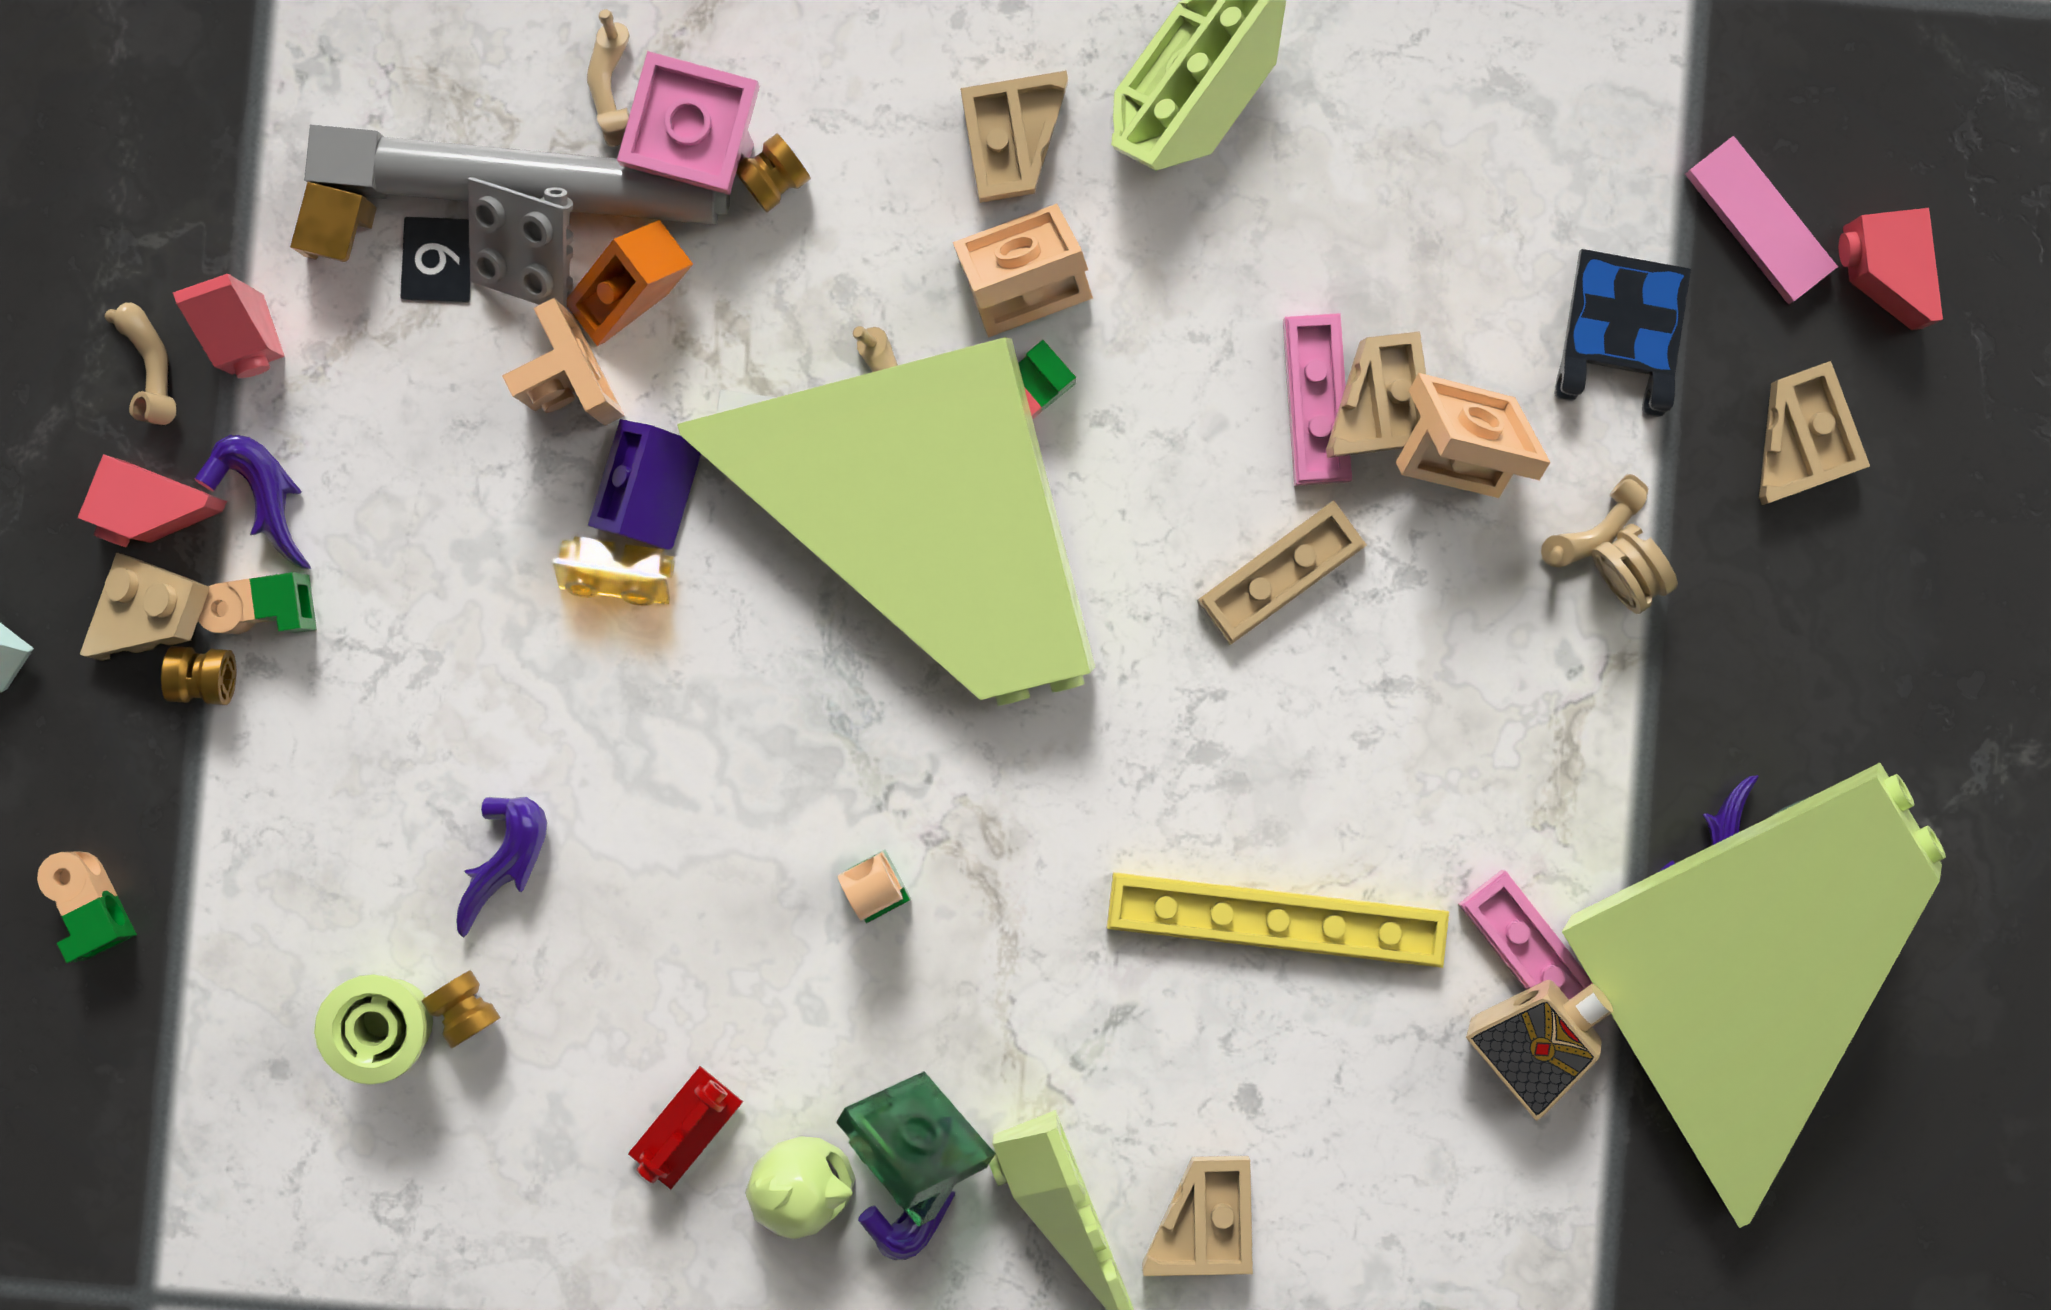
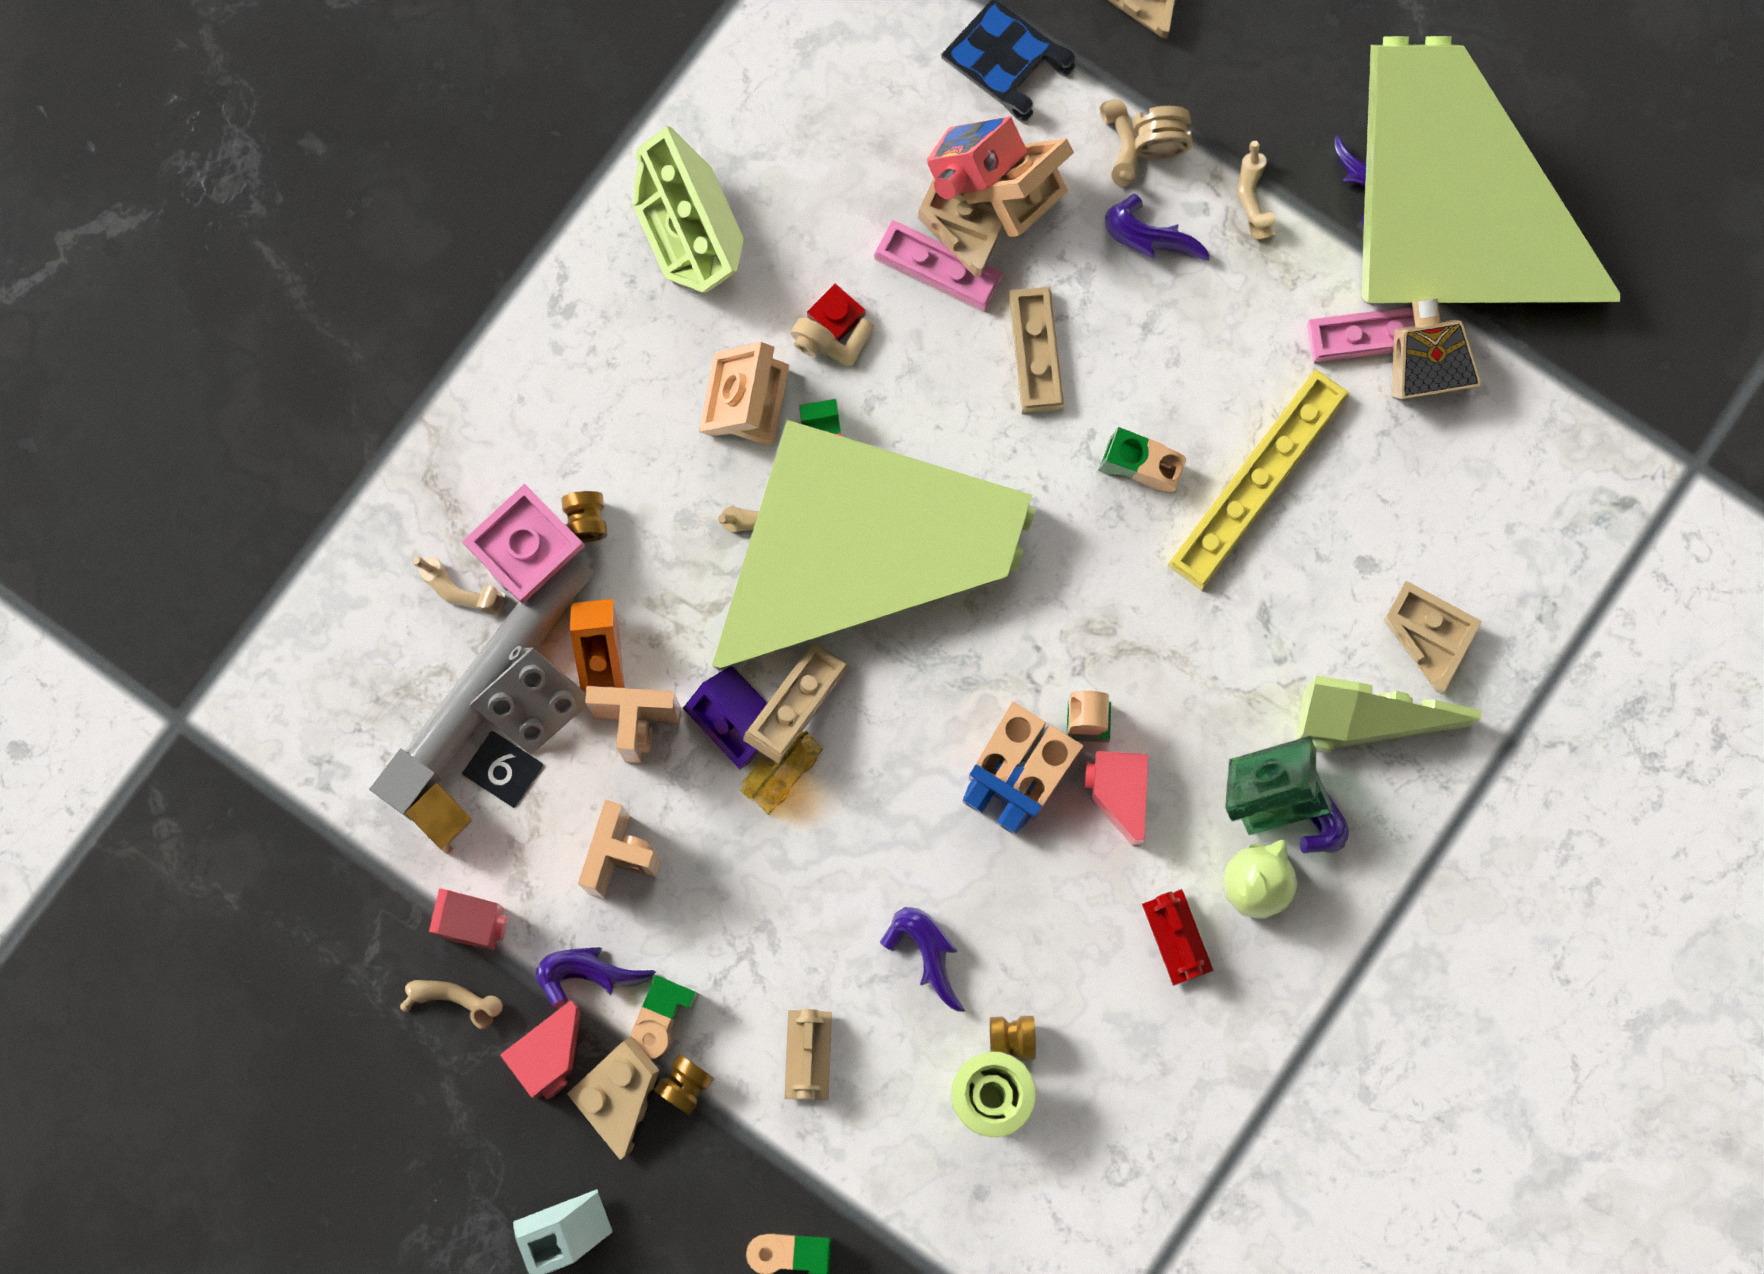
camera: 55 degrees left, 10 degrees down
(313, 793) = (808, 1054): none -> tan hinge
(400, 444) = (613, 848): none -> light nougat bracket
(694, 543) = (795, 702): none -> tan tile
(752, 843) = (1017, 782): none -> light nougat hips
(811, 970) = (1120, 790): none -> coral slope
(1011, 131) = (651, 354): tan wing -> none
(1138, 307) = (814, 339): none -> tan plate
(1188, 315) = (836, 312): none -> red plate
(1216, 774) = (1142, 460): none -> leg
(1465, 365) = (975, 156): none -> coral torso
(1492, 622) = (1145, 238): none -> dark purple piece
(1652, 699) = (1251, 170): none -> tan piece

